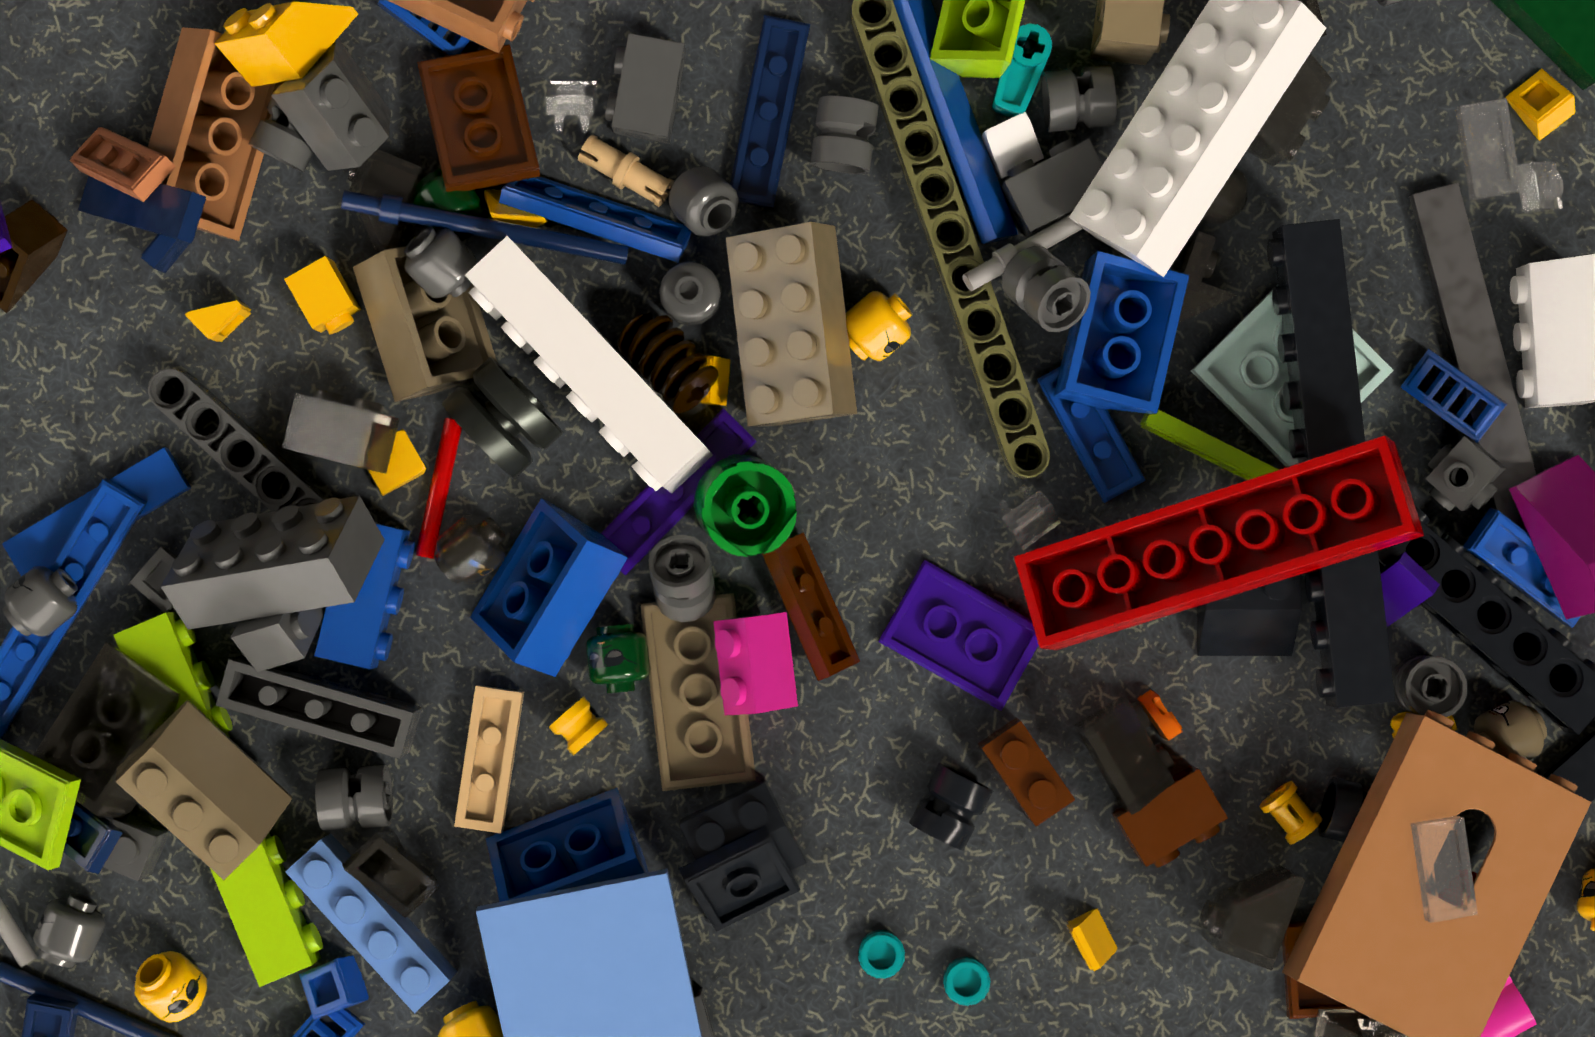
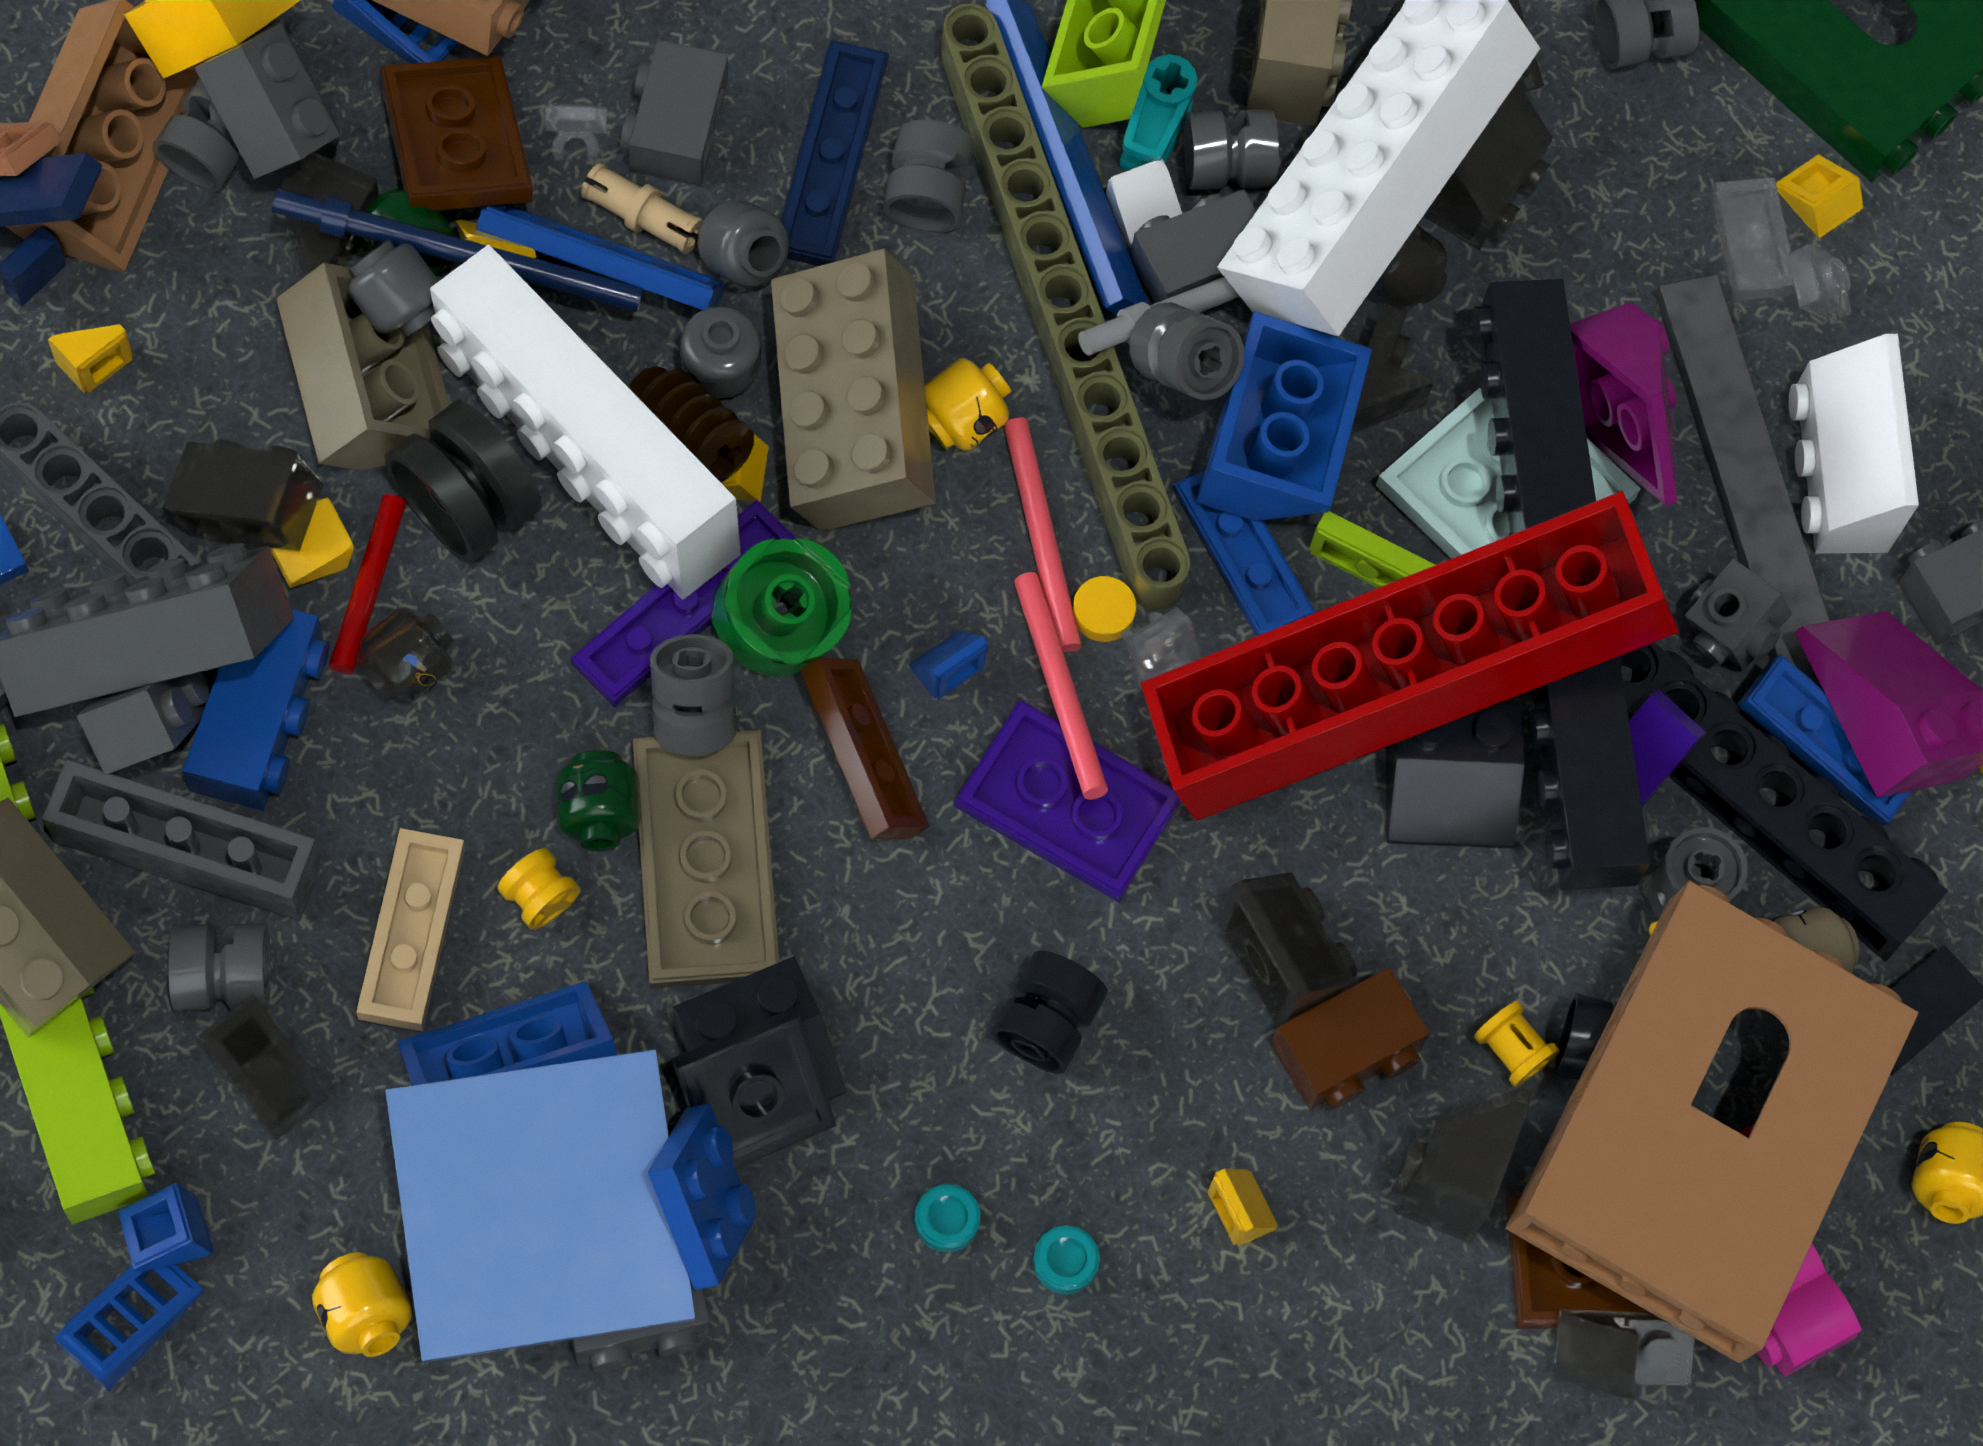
camera: 10 degrees left, 20 degrees down
(323, 296) = (233, 333): yellow brick -> none
(373, 927) = (230, 1135): medium blue brick -> none
(547, 589) = (510, 705): blue slope -> none
(706, 967) = (702, 1195): none -> blue plate
(755, 664) = (787, 811): dark pink brick -> none
(870, 530) = (950, 663): none -> blue slope
(938, 424) = (1042, 532): none -> coral bar
(954, 549) = (1061, 686): none -> coral bar
(985, 482) = (1104, 608): none -> yellow tile
(1026, 771) = (1153, 969): reddish brown brick -> none
(1164, 721) = (1342, 916): orange tile -> none
(1387, 306) = (1628, 394): none -> magenta slope
(1444, 869) = (1721, 1076): clear tile -> none
(1485, 419) = (1762, 547): blue slope -> none

